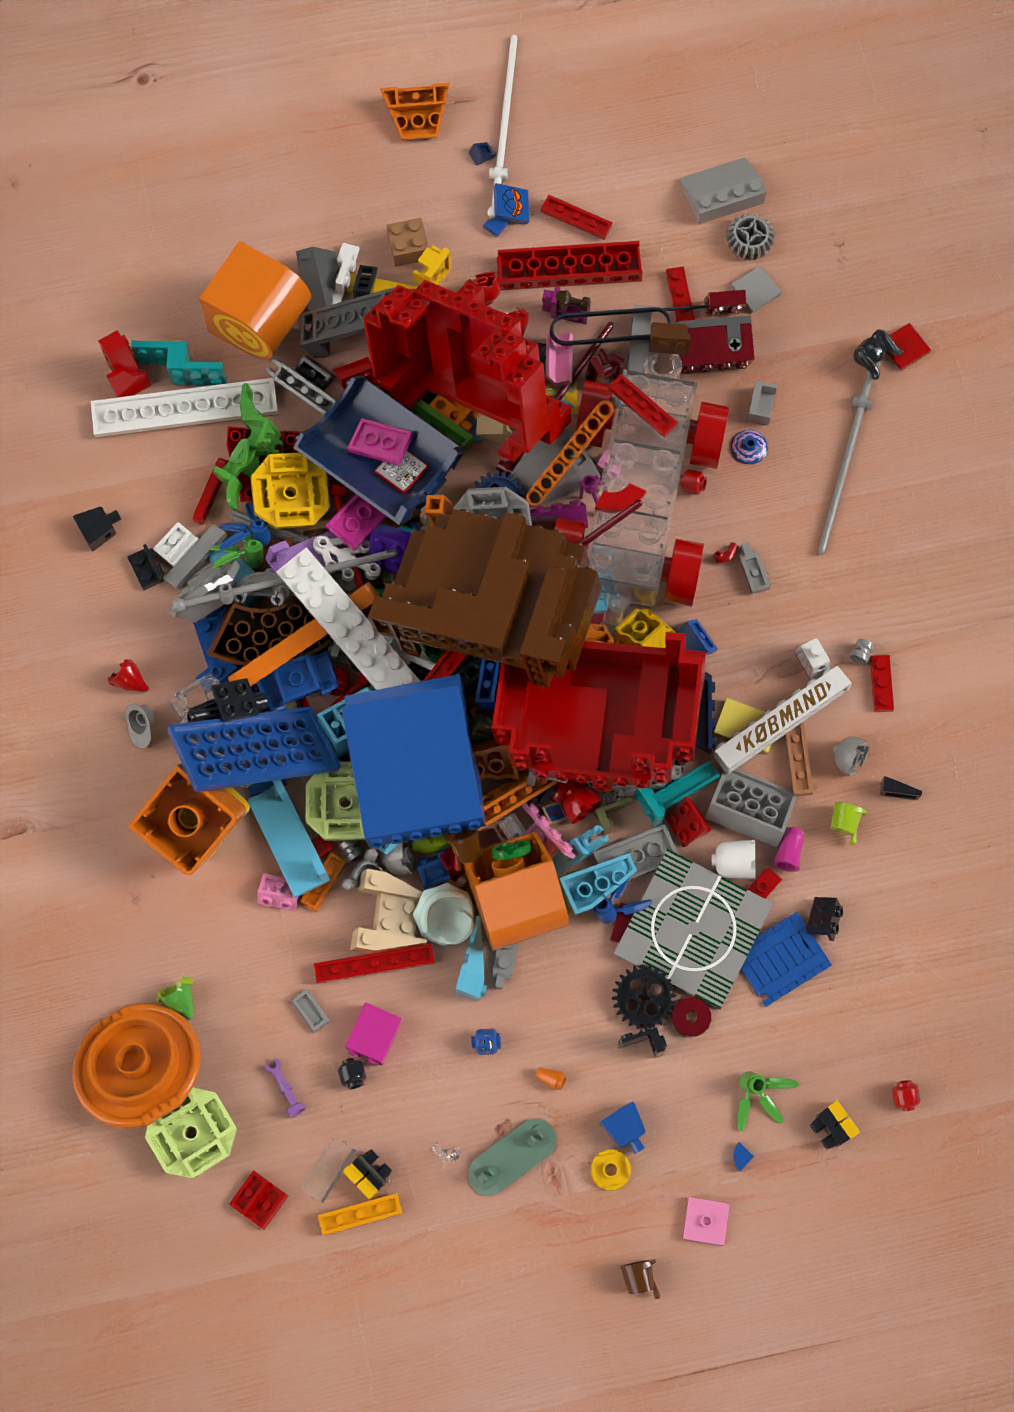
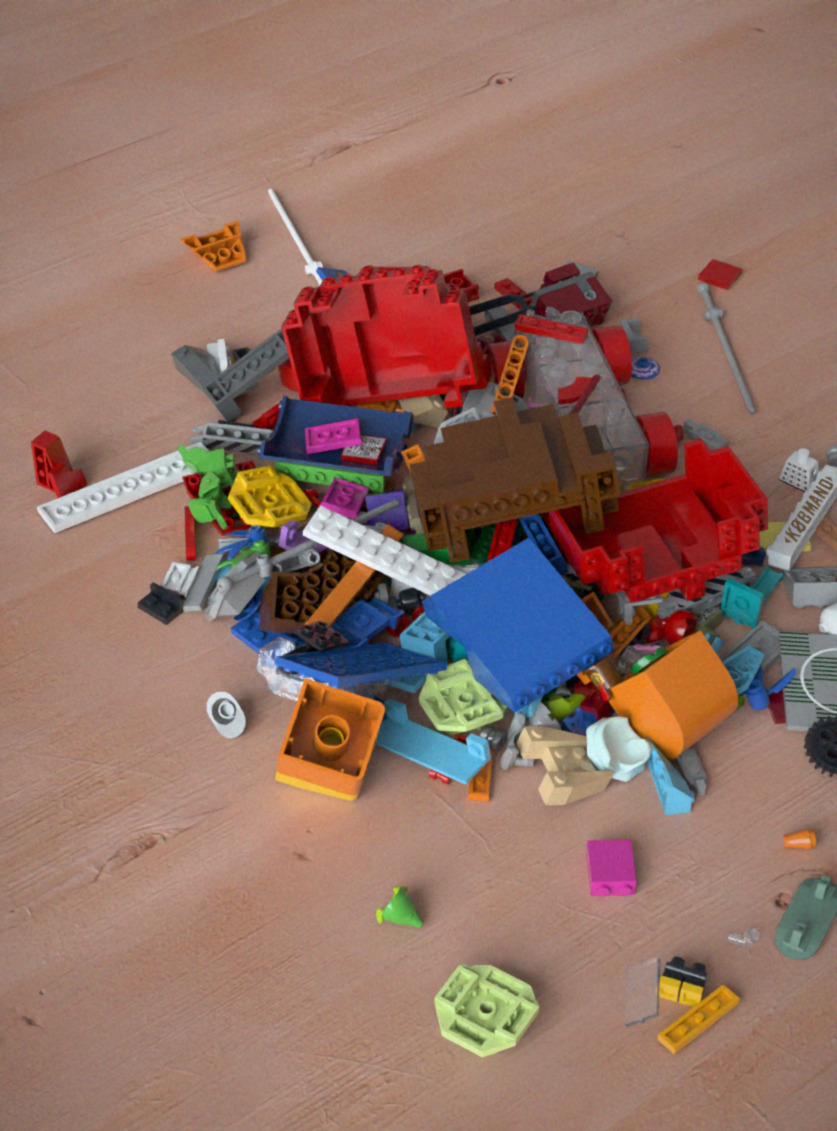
camera: 25 degrees left, 30 degrees down
(97, 526) = (94, 590): black torso -> none
(128, 678) = (194, 684): red hat -> none
(136, 1065) = (394, 974): orange piece -> none
(179, 362) = (109, 454): teal bracket -> none
(253, 301) = (157, 387): orange brick -> none
(258, 1200) = (589, 1050): red slope -> none
(276, 893) = (444, 796): bright pink bracket -> none
(285, 1088) = (575, 957): medium lavender piece -> none
(310, 1010) = (535, 876): light grey tile -> none
(352, 1073) = (612, 905): black head -> none
(374, 963) = (572, 815): red plate -> none
(407, 241) = (261, 323): medium nougat brick -> none
(481, 153) = (289, 261): dark blue slope -> none
(486, 1041) = (721, 832): blue head -> none
(669, 338) = (540, 295): reddish brown bracket -> none
(686, 821) = (781, 609): red bracket -> none
(723, 190) = (508, 228): light grey slope -> none
(760, 241) = (548, 245): light grey gear -> none
(873, 350) = (699, 278): black hair -> none

